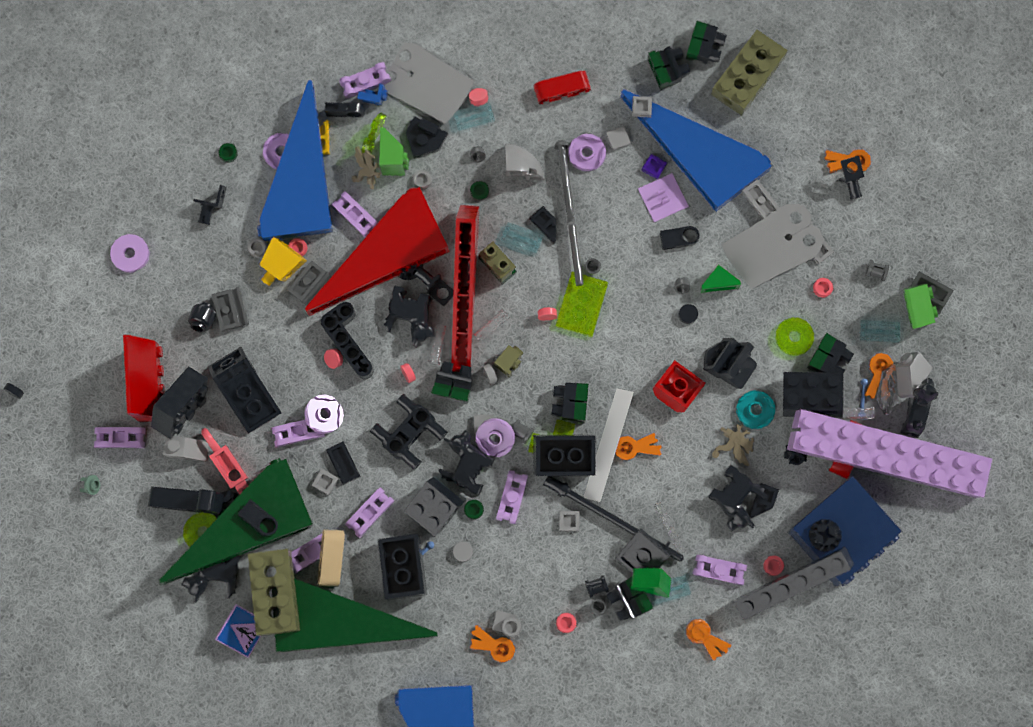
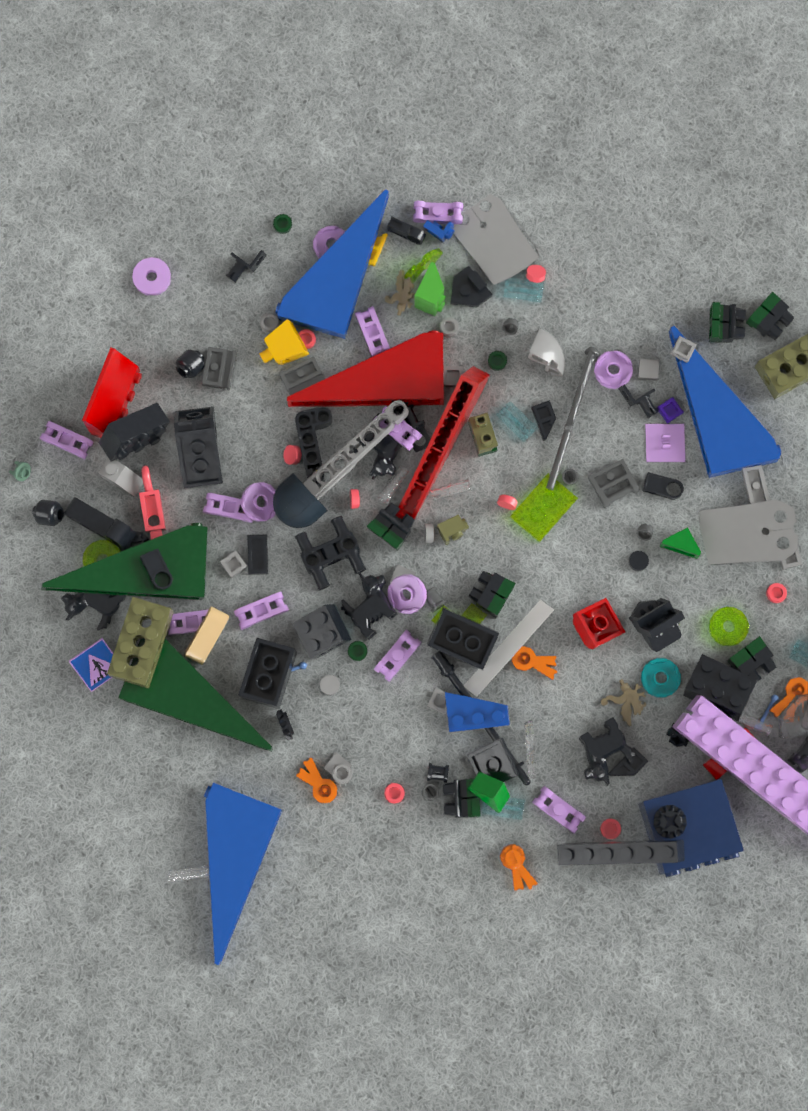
camera: 20 degrees right, 0 degrees up
(133, 512) = (48, 513): none -> black head
(359, 399) = (299, 503): none -> piece
(418, 292) = (401, 431): none -> lavender plate
(438, 605) = (285, 724): none -> black gear
(446, 222) = (452, 375): none -> light grey tile
(561, 86) = (618, 298): red beam -> none
(604, 518) = (473, 713): none -> blue wing
(627, 169) = (644, 401): none -> black bracket
(629, 250) = (611, 477): none -> dark grey plate

